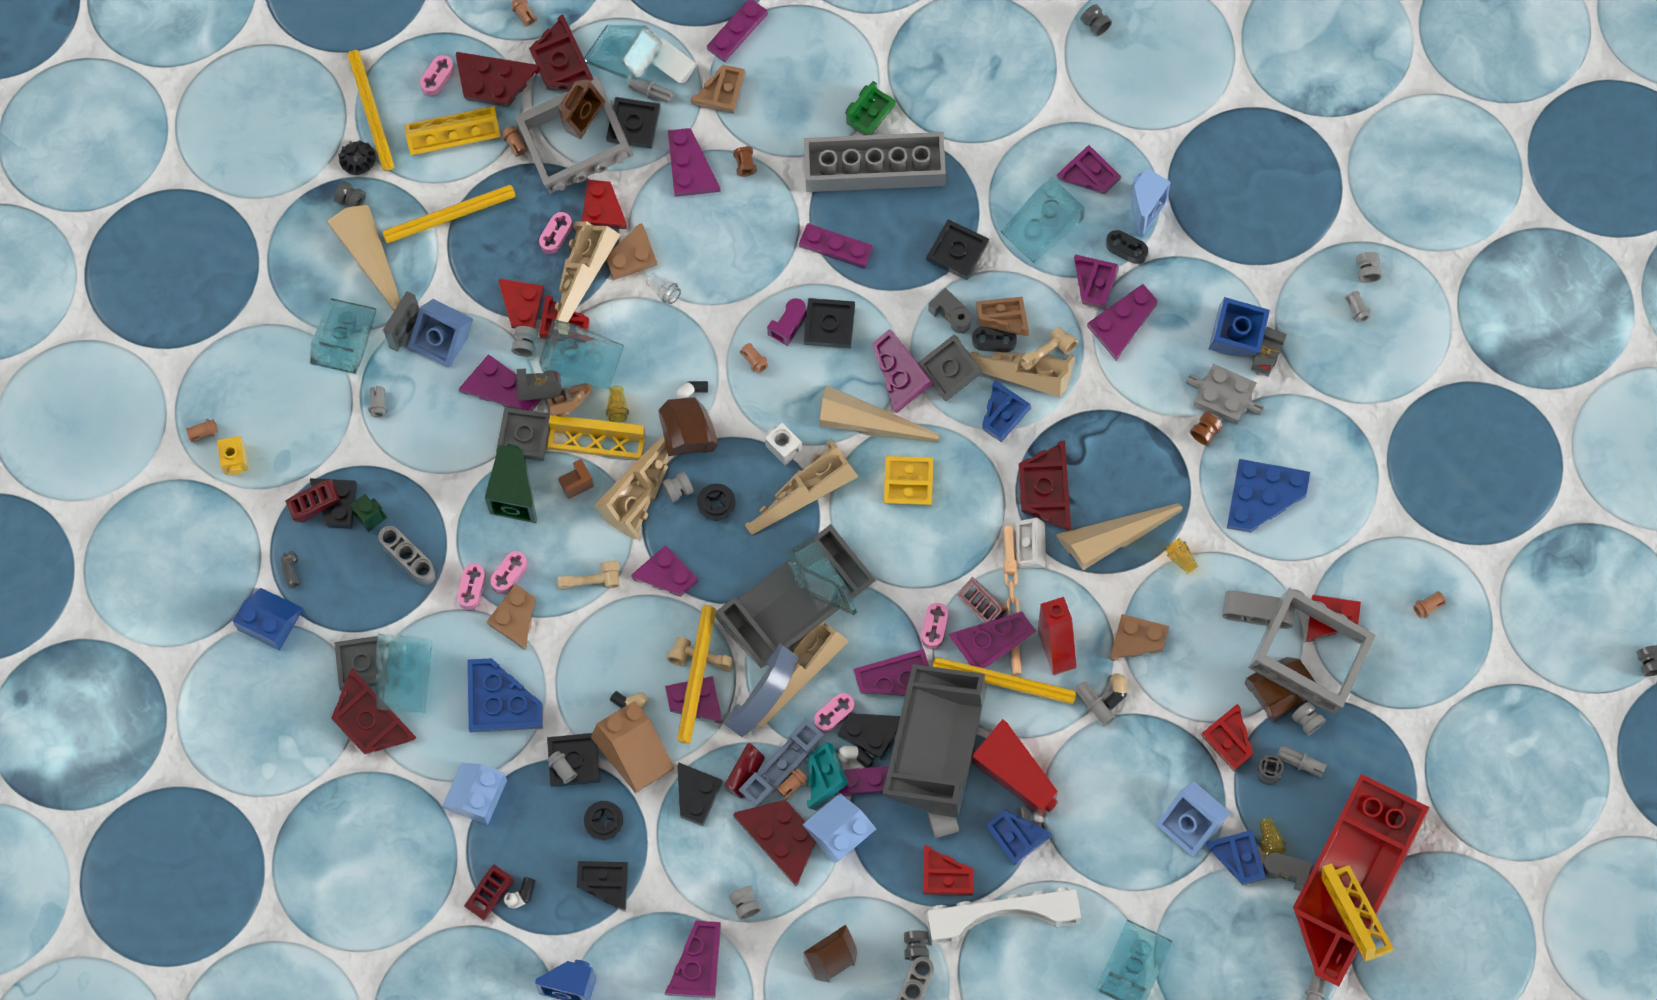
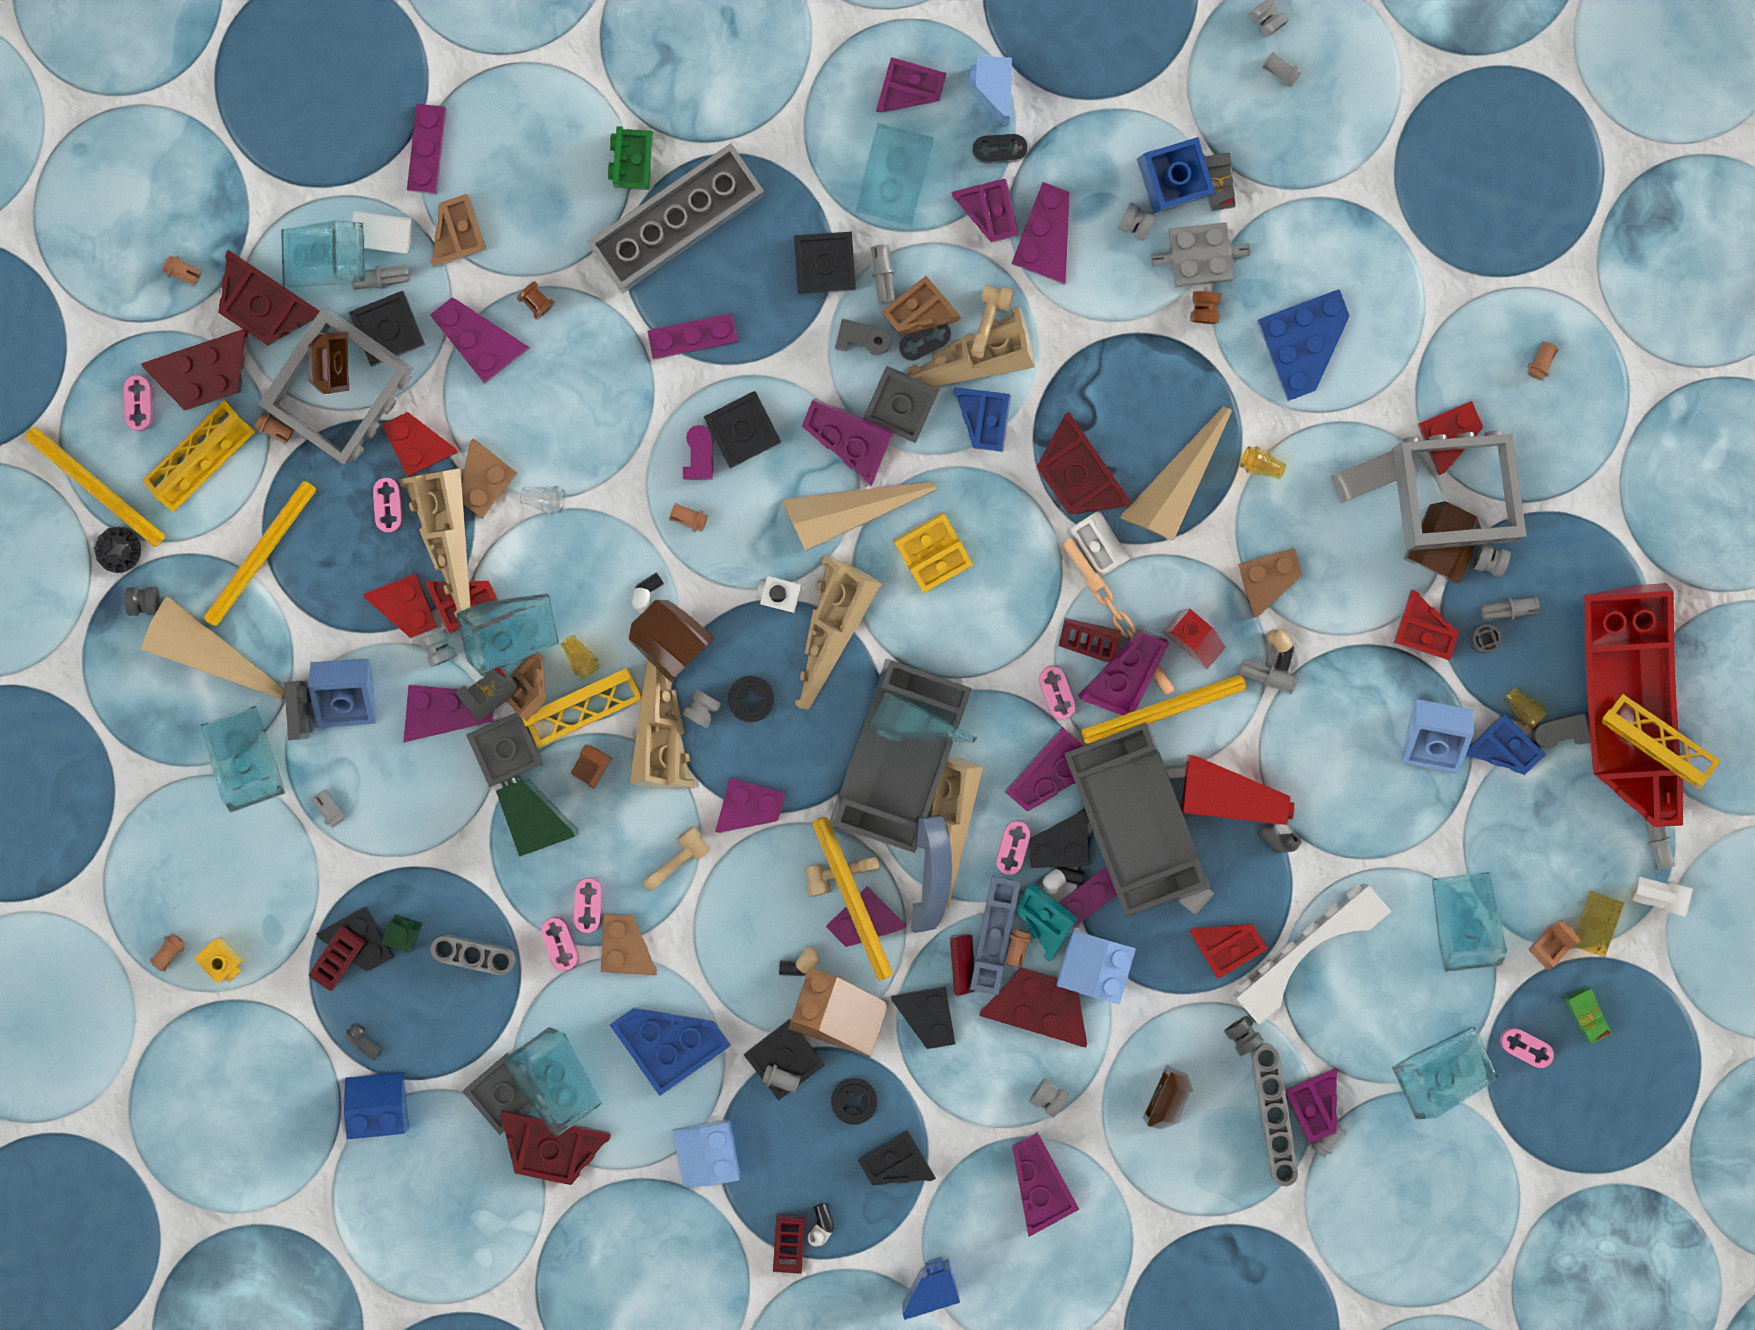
camera: 35 degrees left, 20 degrees up
(993, 278) = (883, 273): none -> light grey axle
(1017, 835) = (1275, 862): blue wing -> none
(1193, 345) = (1137, 221): none -> light grey wheel

